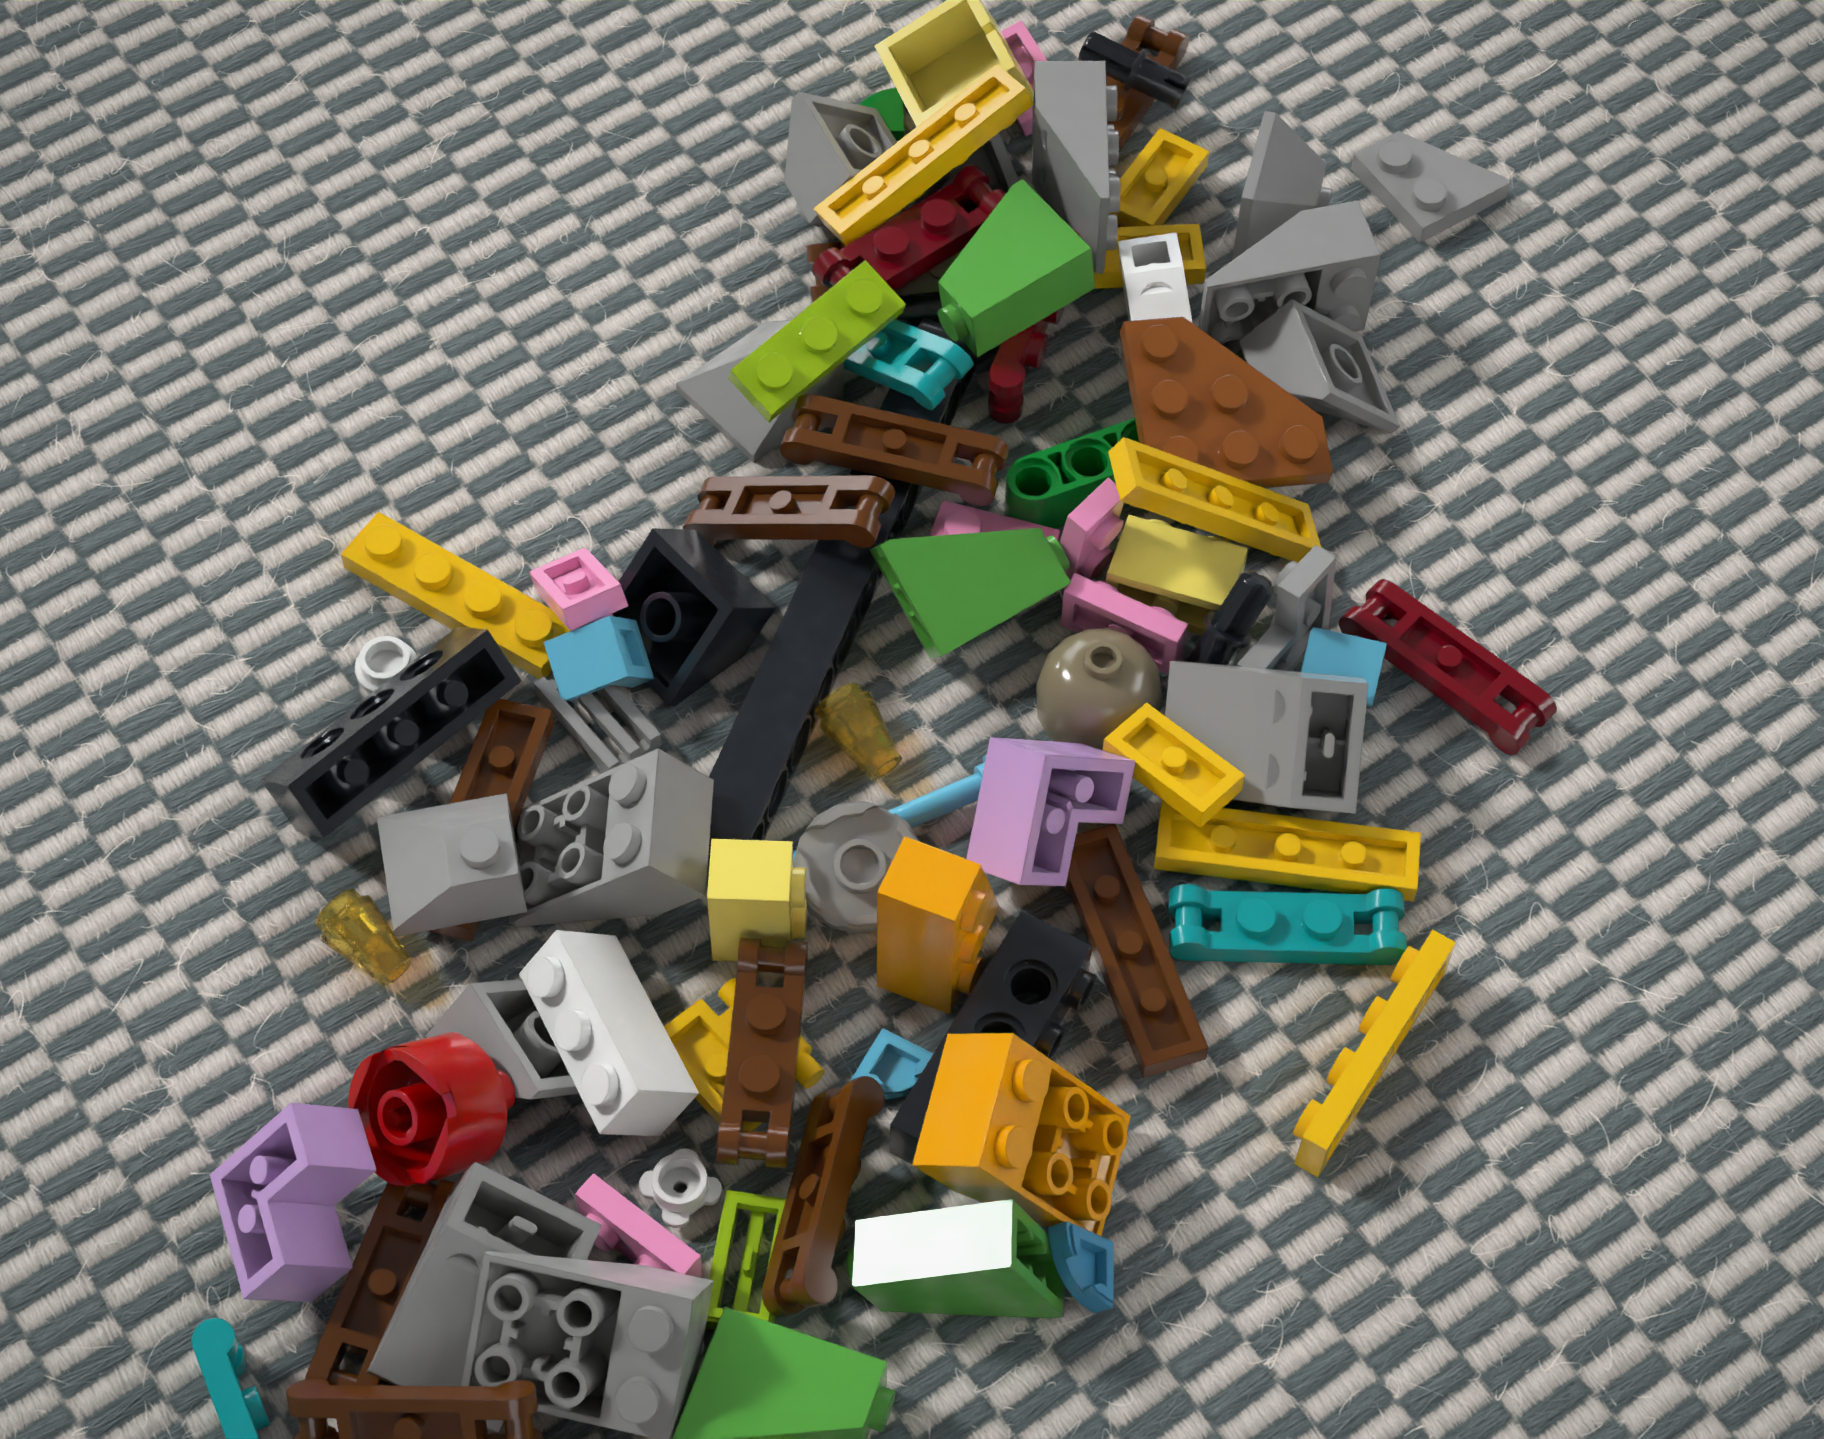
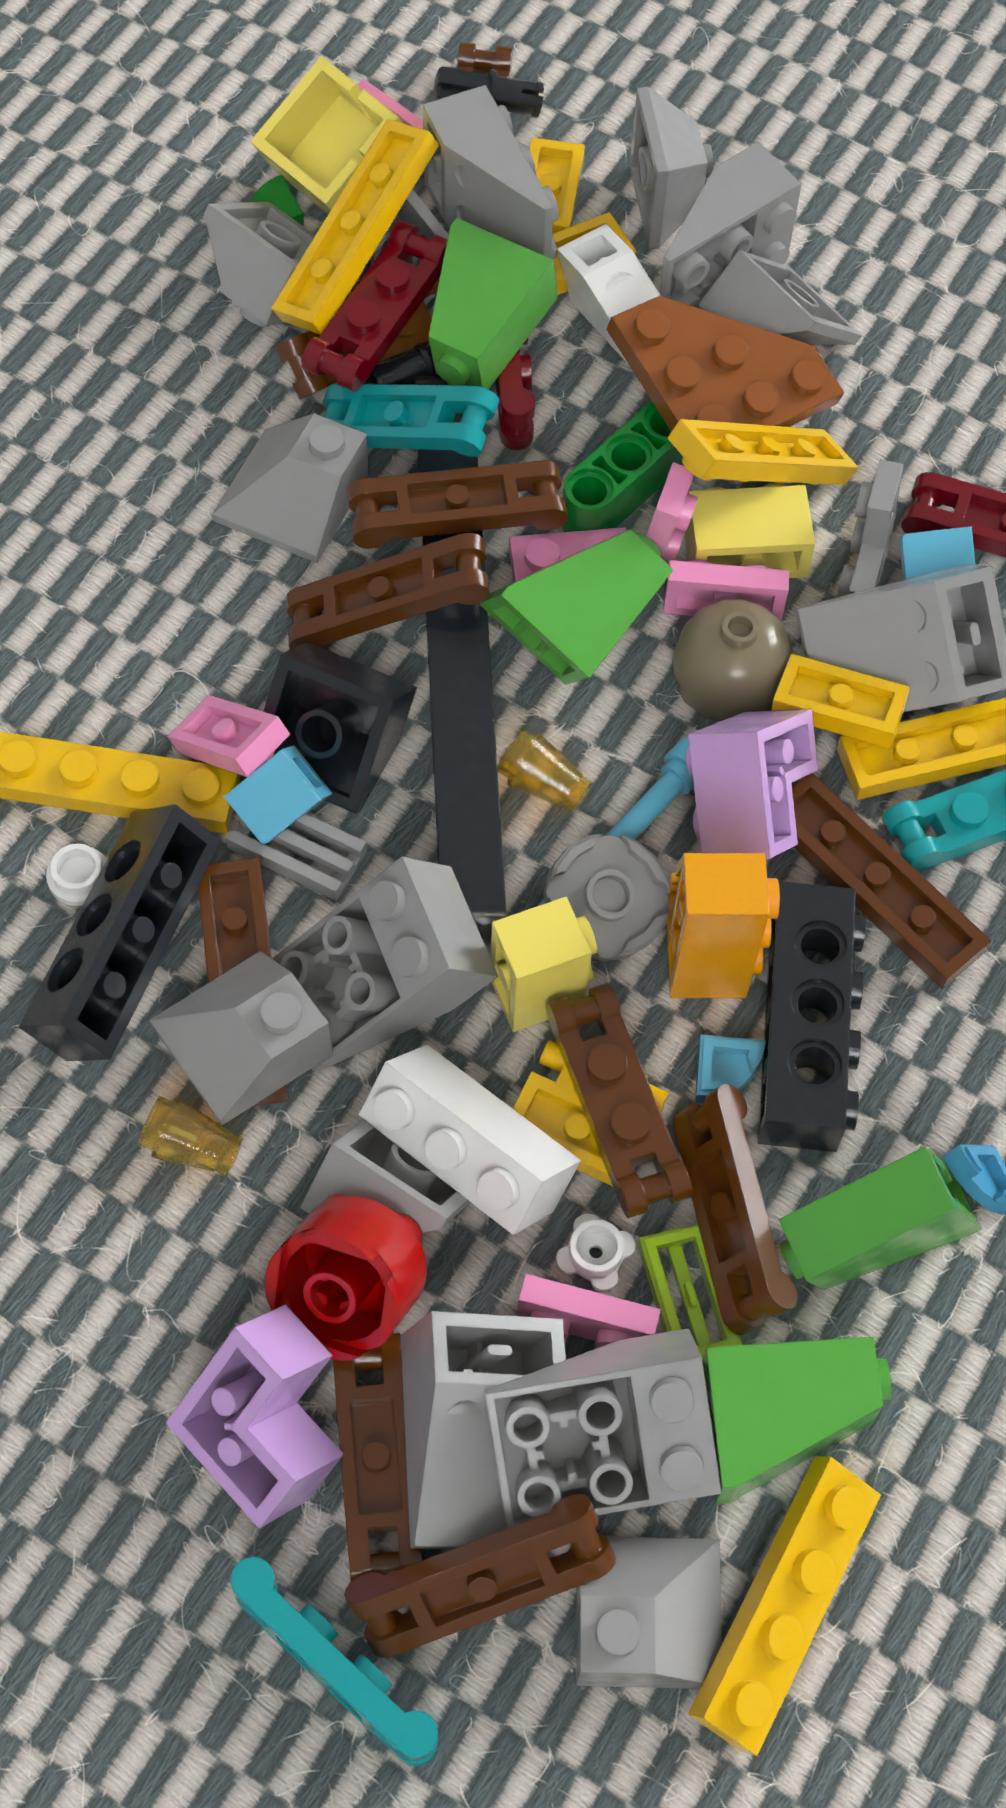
camera: 25 degrees left, 5 degrees up
(816, 341) = (343, 428): lime plate -> none
(1021, 1130) = (885, 1081): light orange slope -> none
(1231, 624) = (827, 557): black axle -> none
(1426, 184) = (777, 114): light grey wing -> none

